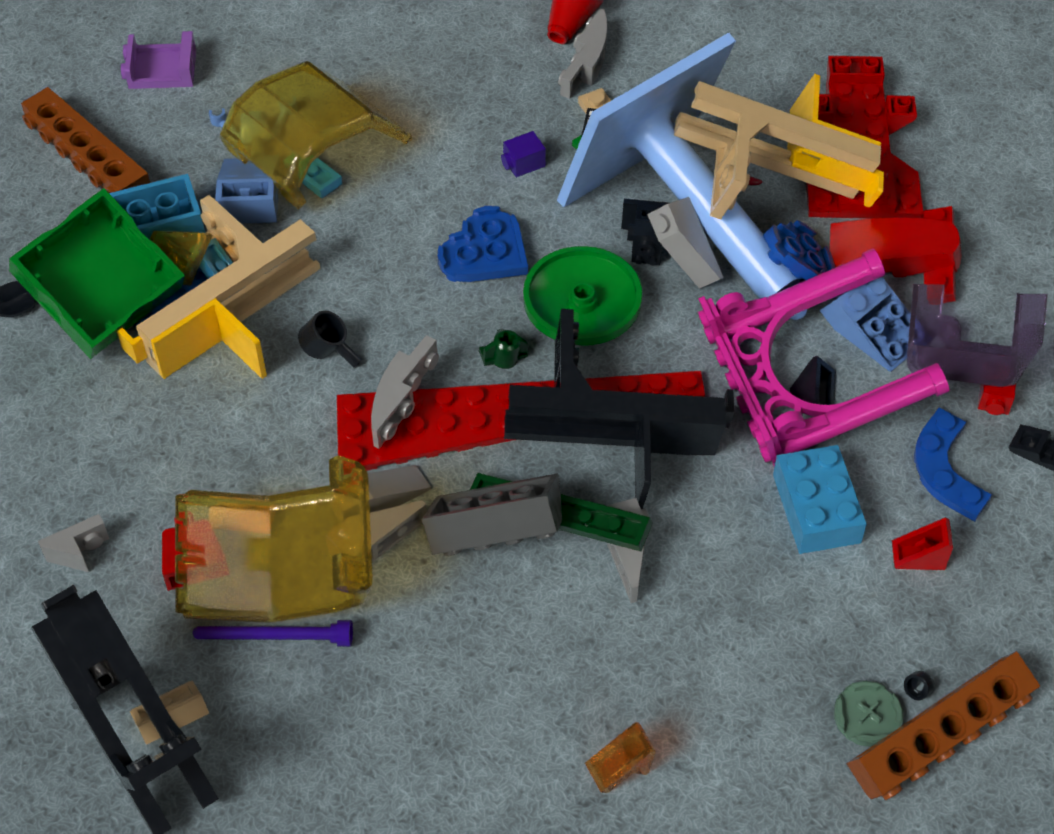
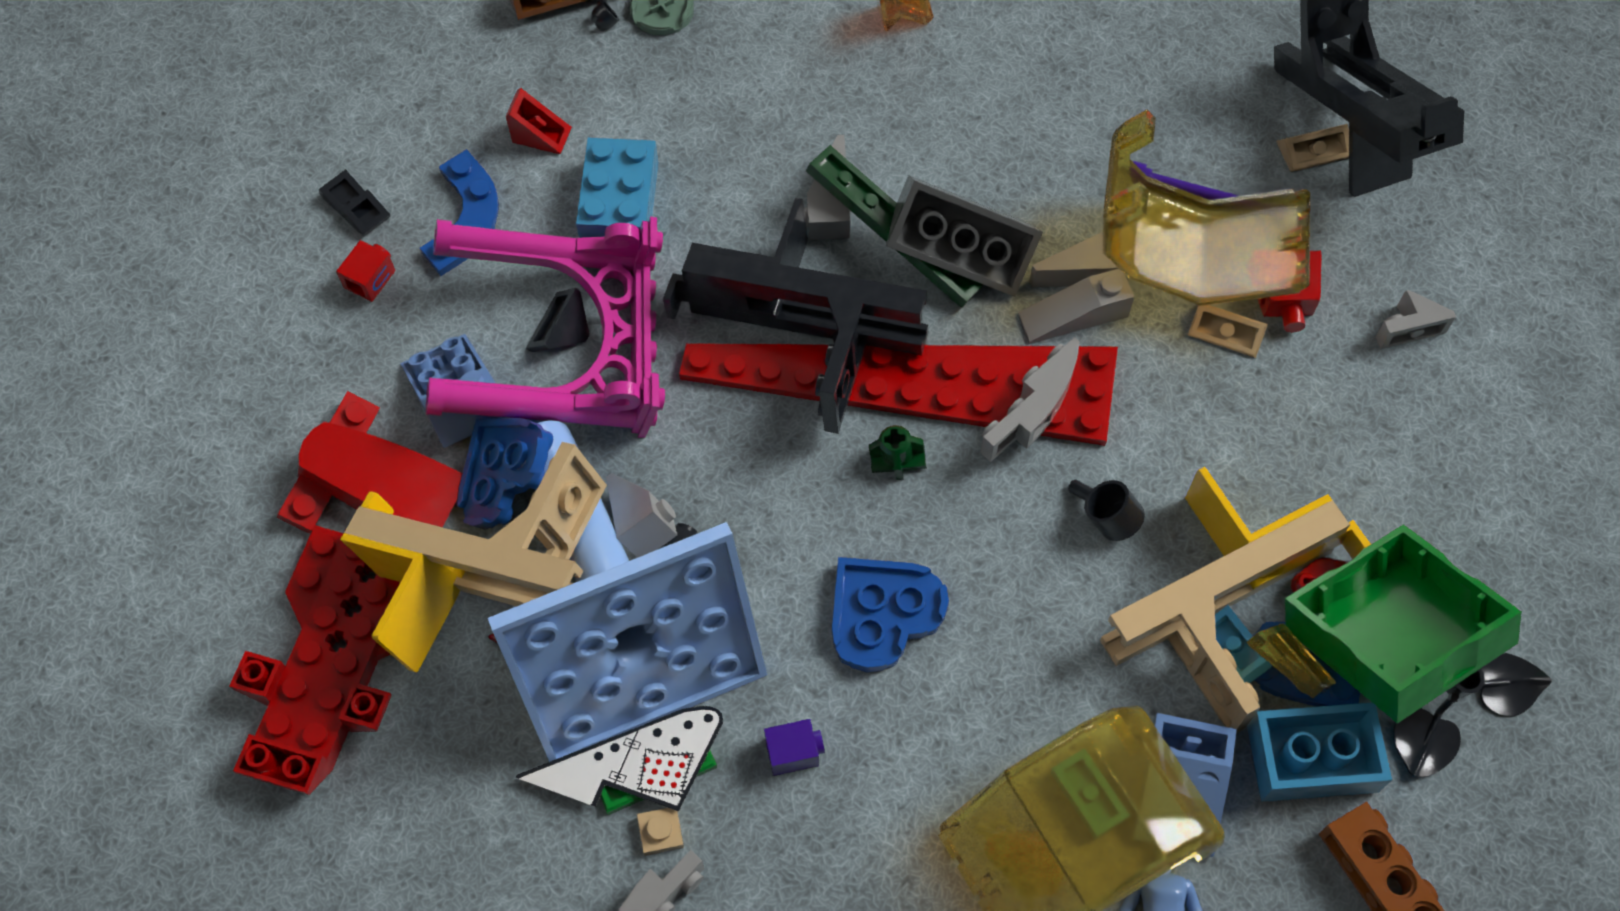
camera: 165 degrees left, 10 degrees up
(590, 281) = (785, 491): green dish -> none
(938, 340) = (373, 289): clear purple windscreen -> none

